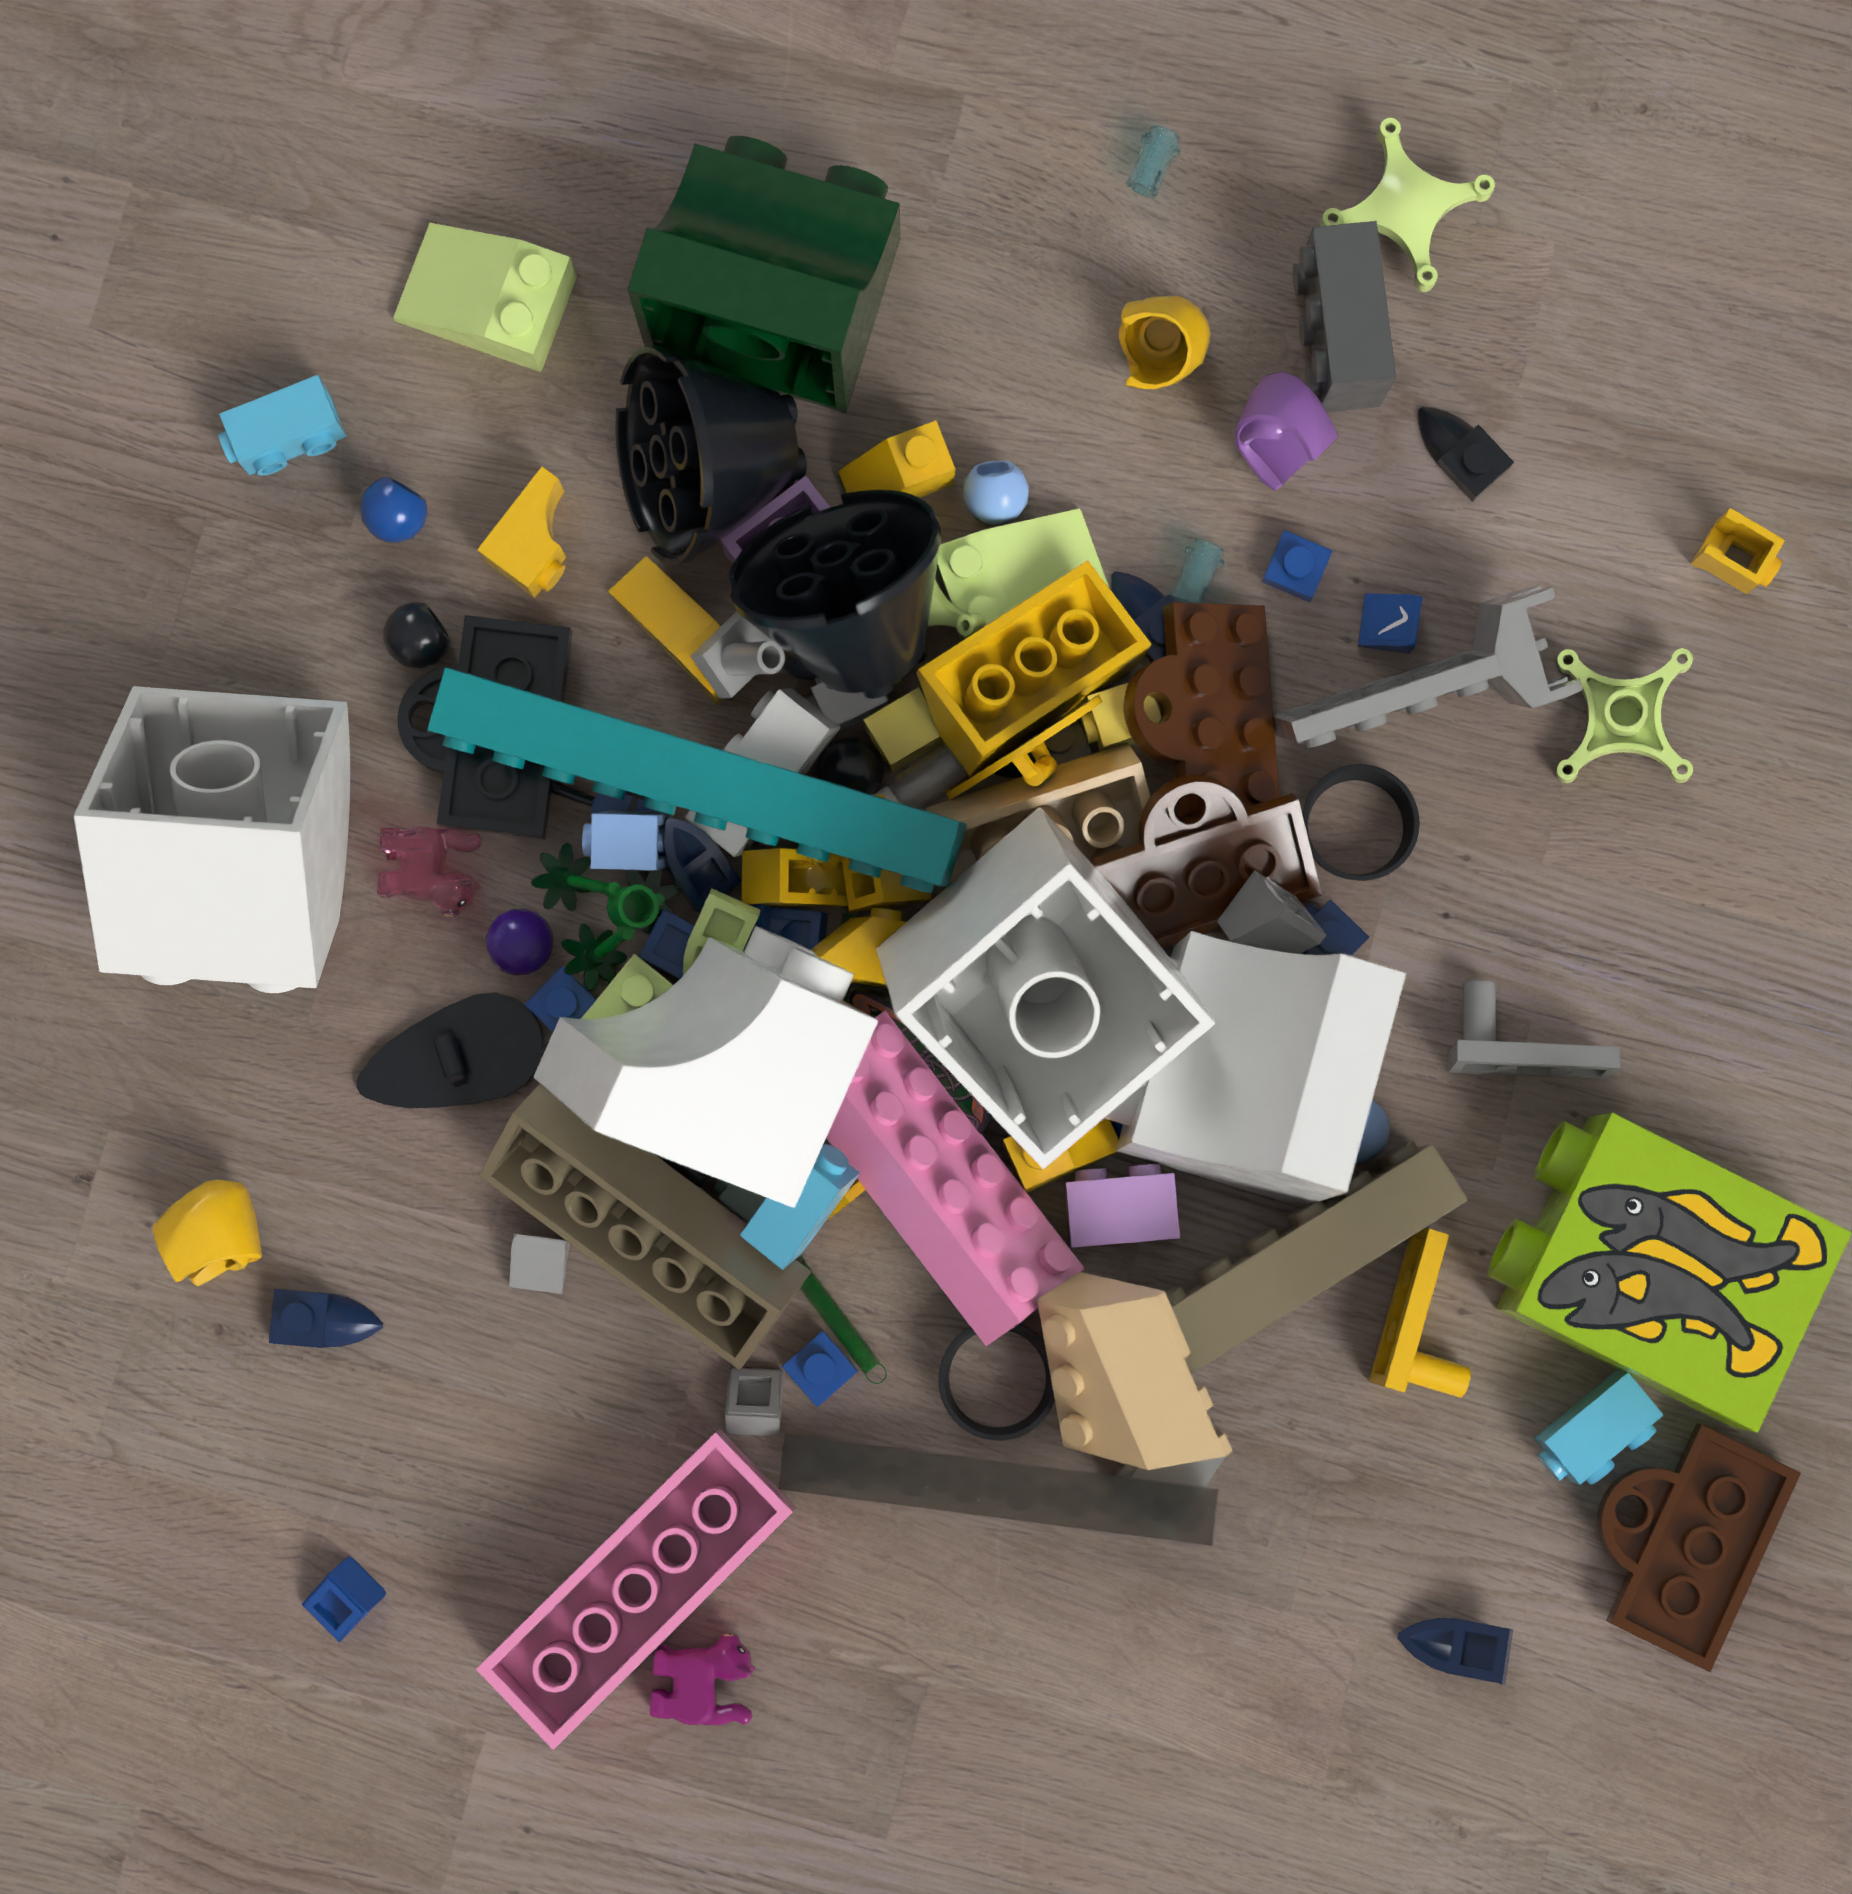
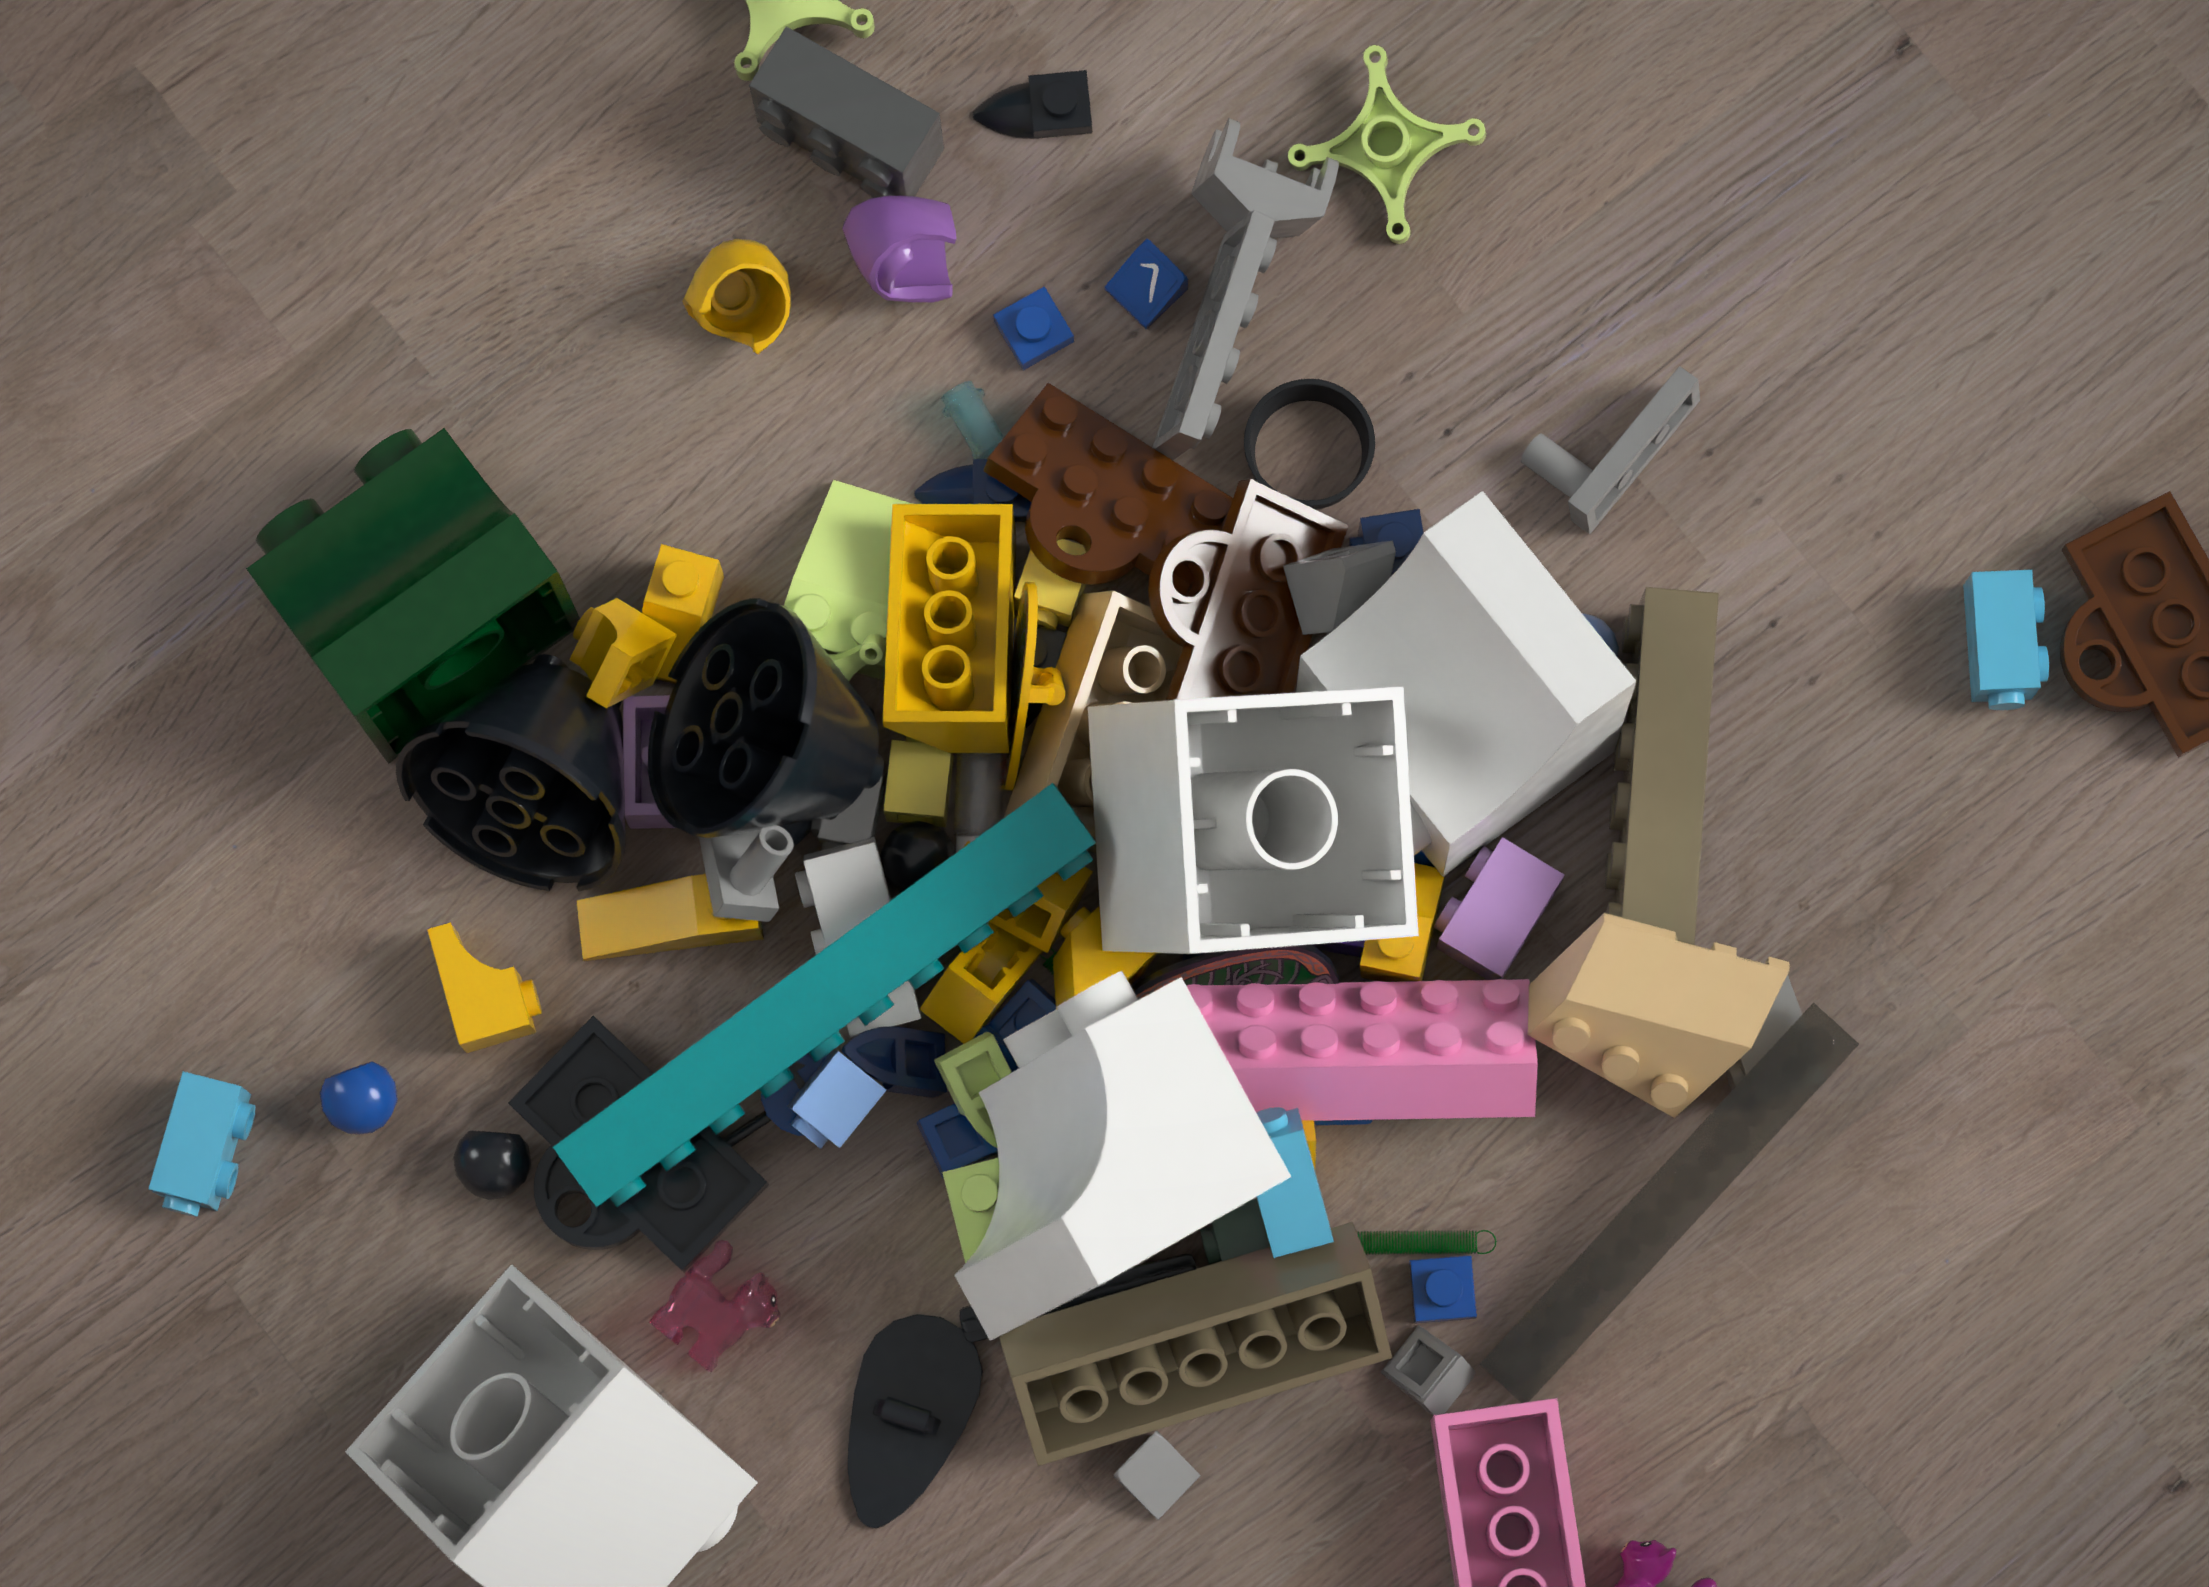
camera: 50 degrees left, 5 degrees down
(488, 293) = (219, 866): yellowish green slope -> none
(519, 941) = (848, 1275): dark purple piece -> none
(560, 998) = (931, 1279): blue plate -> none
(627, 908) = (899, 1141): dark green plant -> none
(835, 449) = (619, 650): none -> yellow arch
(987, 1432) = (1617, 1098): black tyre -> none
(995, 492) = (763, 542): light blue piece -> none
(1153, 161) = (567, 180): clear light blue pin -> none
(1397, 1355) = (1810, 765): yellow piece -> none
(1460, 1647) = (2110, 900): dark blue plate -> none
(1667, 1268) = (1904, 471): brick -> none

